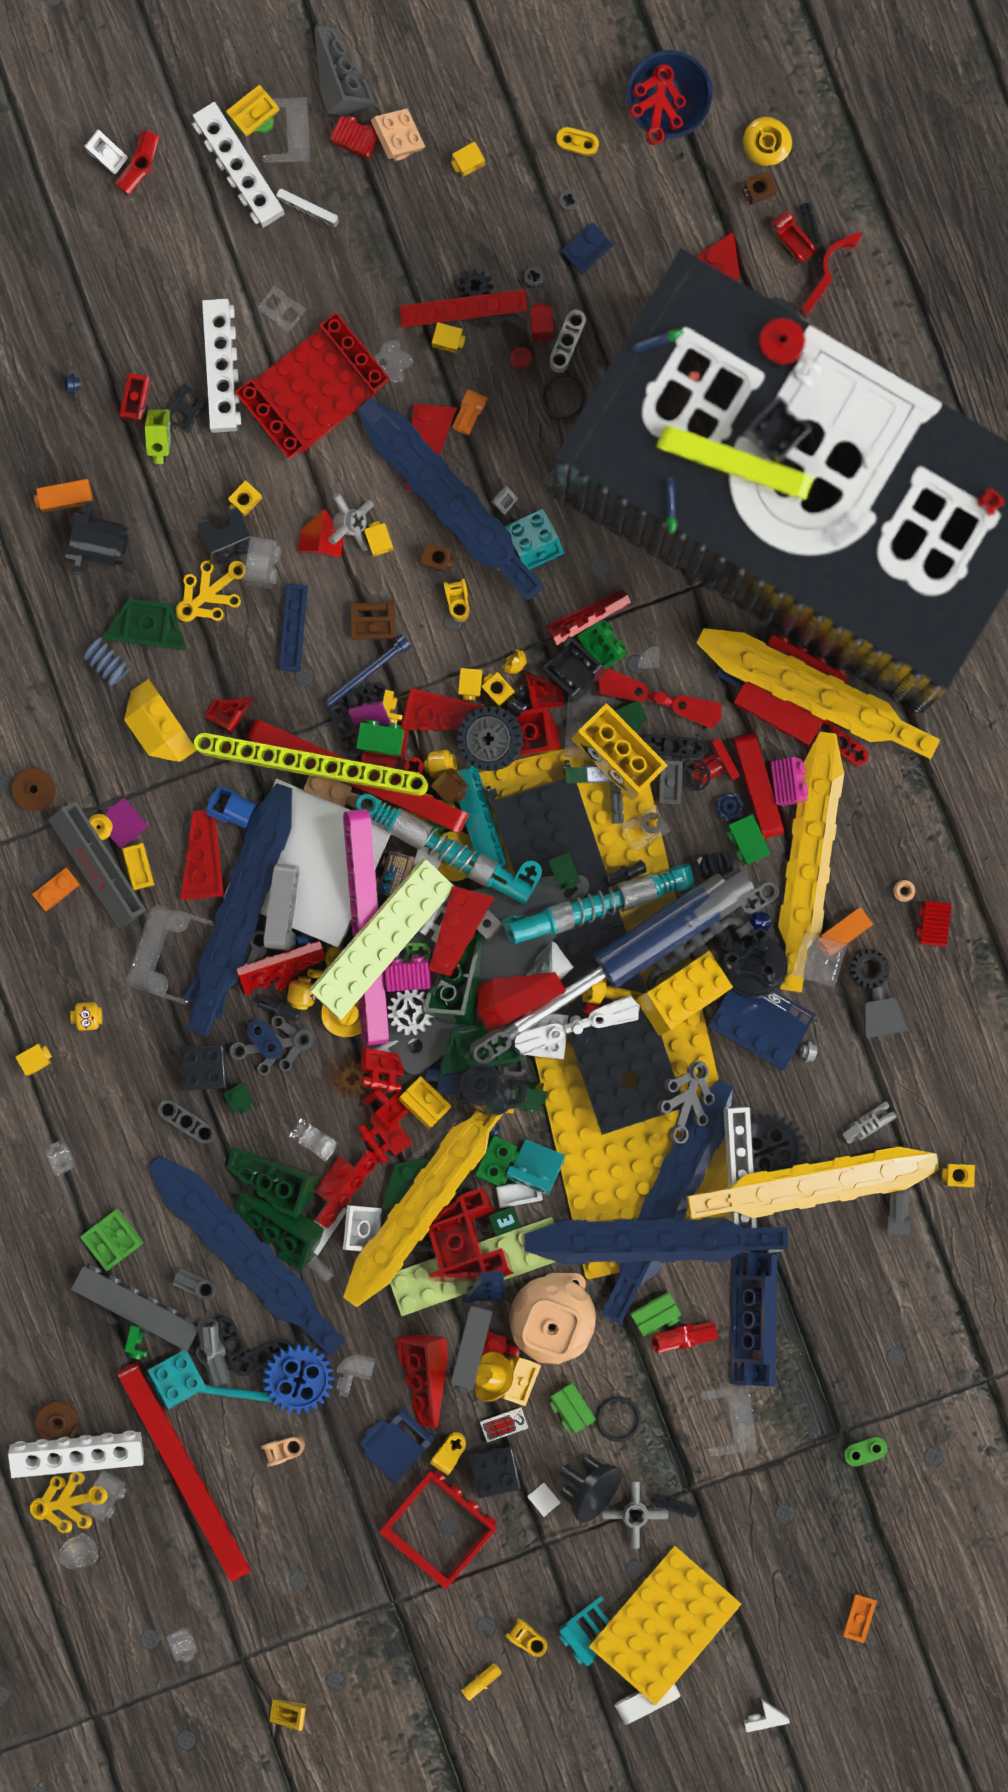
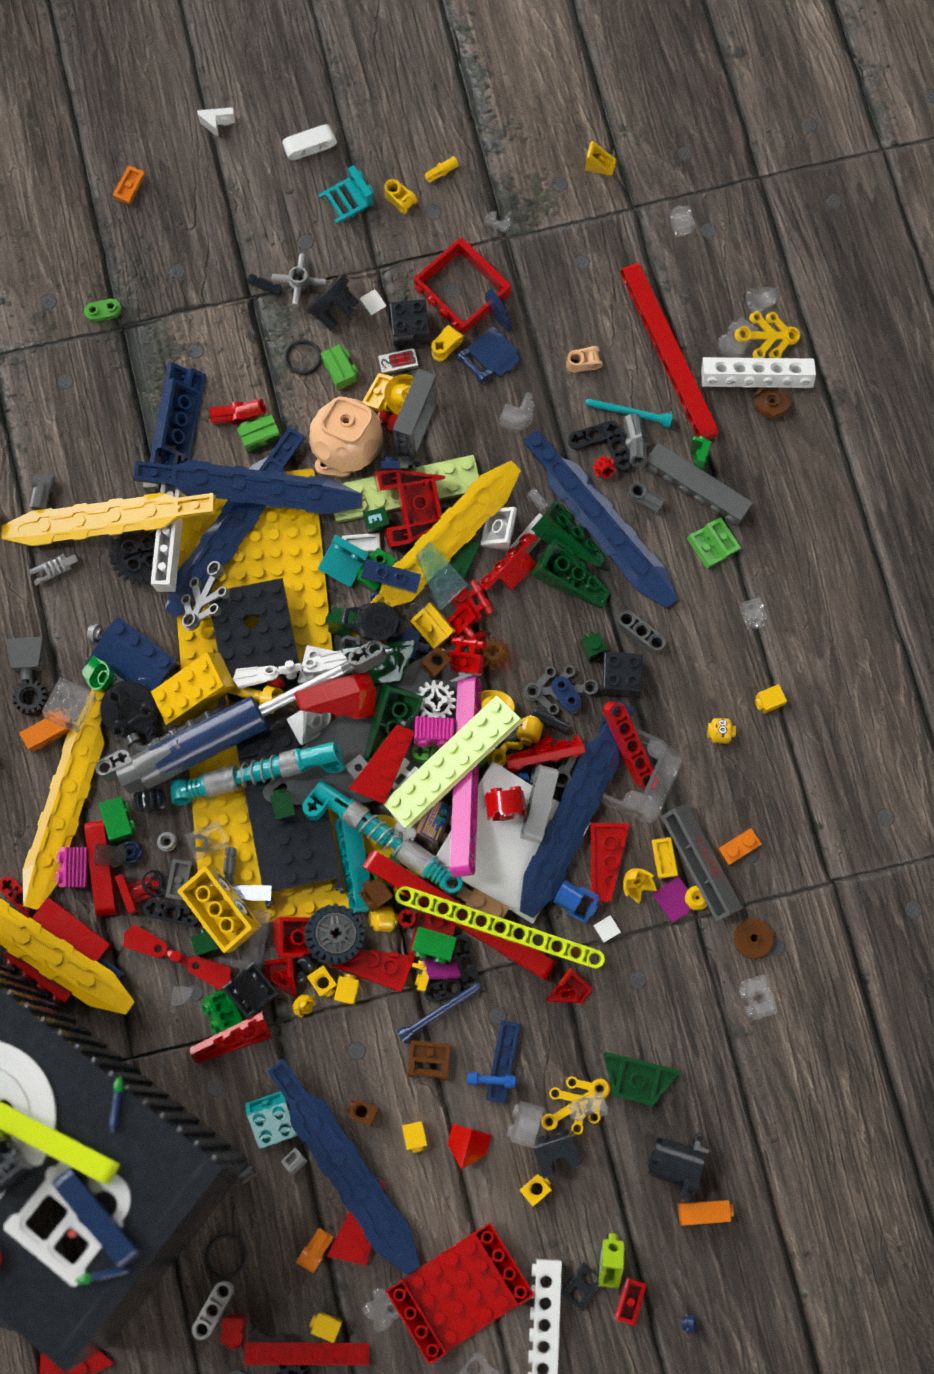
camera: 170 degrees left, 10 degrees down
(15, 716) = (761, 987): none -> clear brick
(105, 662) = (678, 1048): sand blue piece -> none
(156, 725) = (637, 985): yellow wedge -> none
(168, 836) = (636, 881): none -> yellow piece
(174, 1380) = (669, 422): teal bracket -> none
(193, 990) = (622, 740): none -> red beam
(194, 782) = (606, 929): none -> white tile
(197, 589) = (587, 1105): none -> clear leg
(246, 1315) = (604, 467): none -> red gear
(283, 606) = (474, 1079): none -> blue bar
(313, 1139) = (531, 604): clear brick -> none
(317, 1382) = (581, 418): blue gear -> none
(318, 897) = (505, 804): none -> red brick
(350, 522) = (439, 1154): light grey bar -> none
(390, 1497) = (499, 310): none -> dark blue tile
(413, 1619) = (490, 220): none -> clear piece
(422, 1158) = (440, 575): none -> clear light blue wing
(424, 1053) = (431, 669): none -> reddish brown brick
(425, 1367) = (457, 412): red wedge -> none
(456, 596) = (349, 1071): yellow piece -> none
(477, 1149) = (390, 576): none -> dark blue plate
(521, 358) = (259, 1299): red plate -> none
(626, 873) = (230, 800): black axle -> none
(665, 1625) = (286, 193): yellow plate -> none
(672, 392) = (96, 1218): none -> dark blue beam
(690, 816) = (167, 835): none -> light grey plate
(741, 1419) = (201, 345): clear plate -> none
(748, 797) = (110, 855): none -> clear smoke bracket
(761, 920) = (116, 745): clear blue plate -> none
(796, 1001) = (96, 676): none -> green cap

